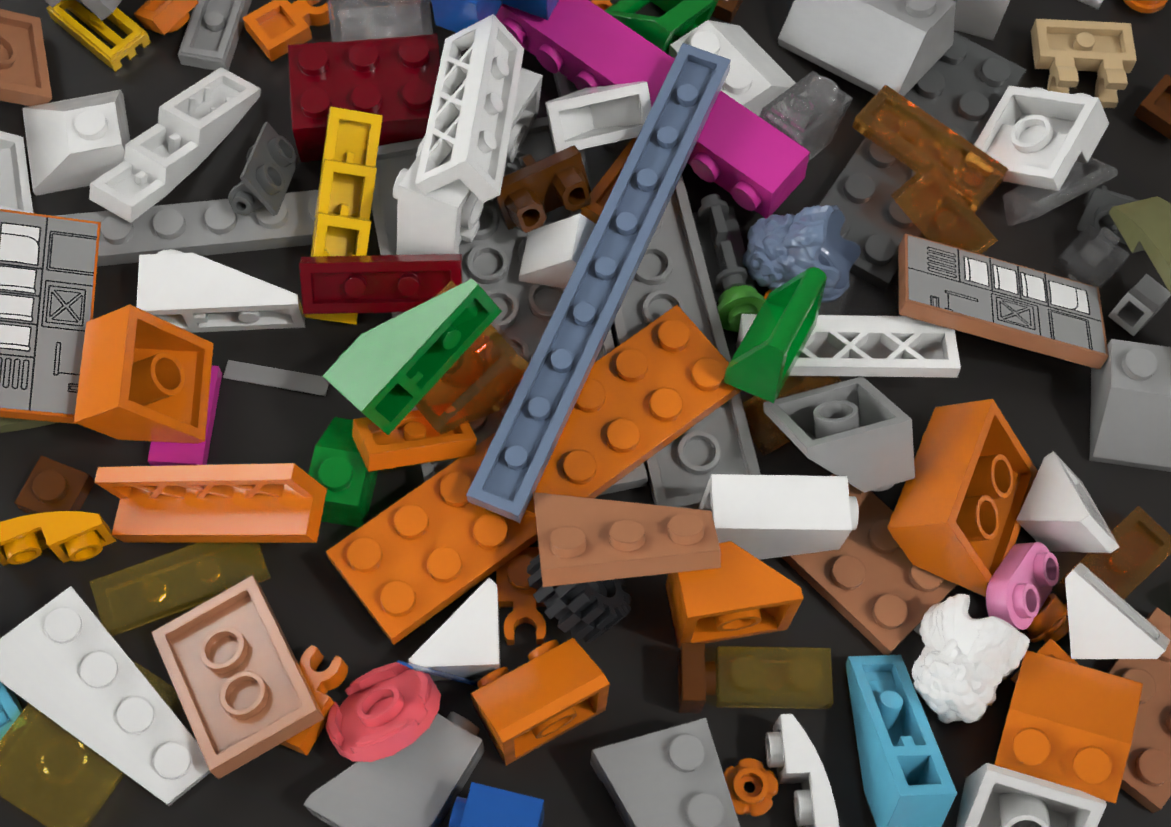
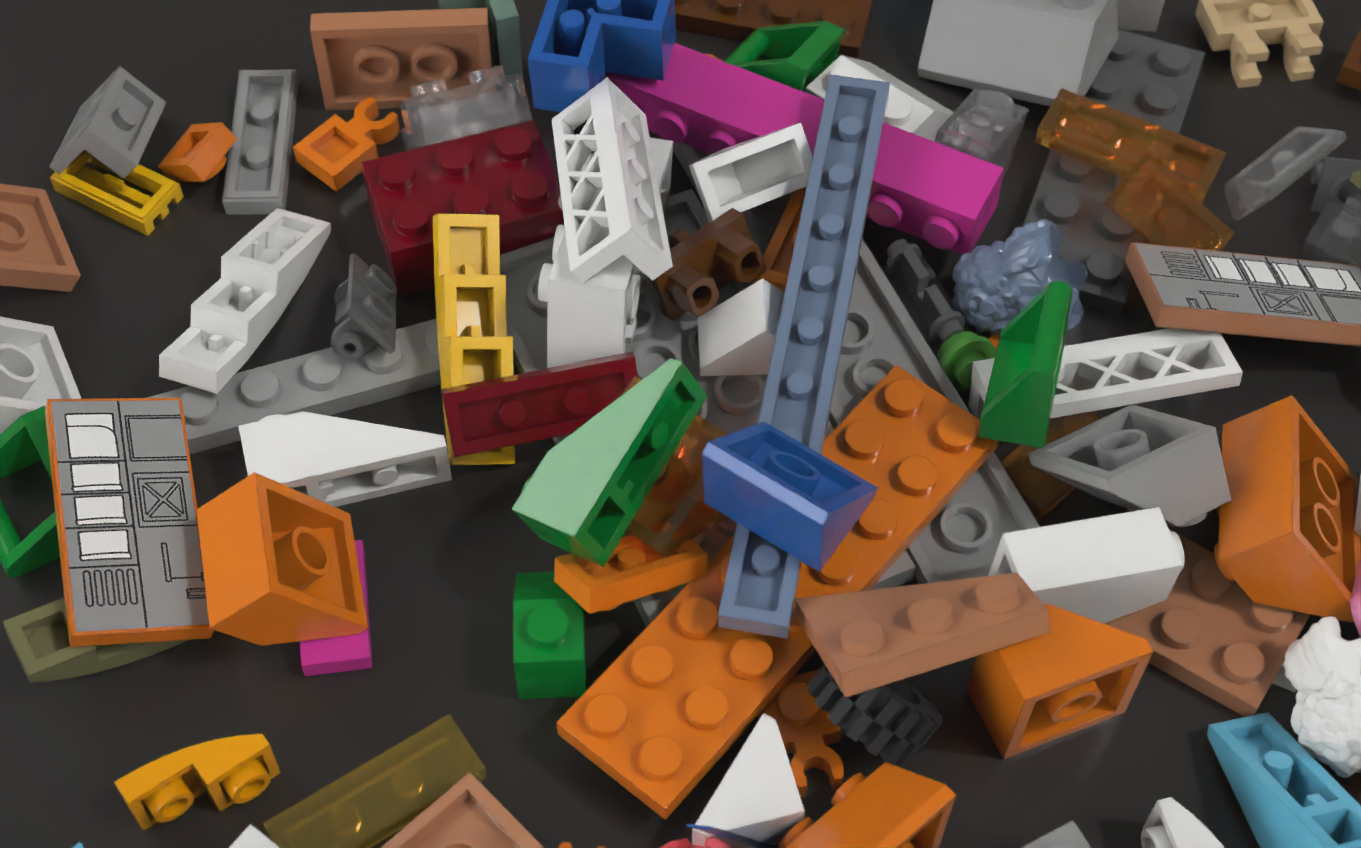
camera: 10 degrees left, 10 degrees down
(54, 488) = (188, 719): reddish brown plate -> none
(75, 140) = (120, 319): white slope -> none
(214, 503) = (401, 693): orange fence -> none
(276, 377) = (432, 543): light grey piece -> none
(543, 402) = (784, 491): none -> blue slope
(695, 678) = (1037, 785): reddish brown plate -> none
(774, 677) = (1128, 768): clear yellow plate -> none
(1042, 134) = (1251, 110): white plate -> none

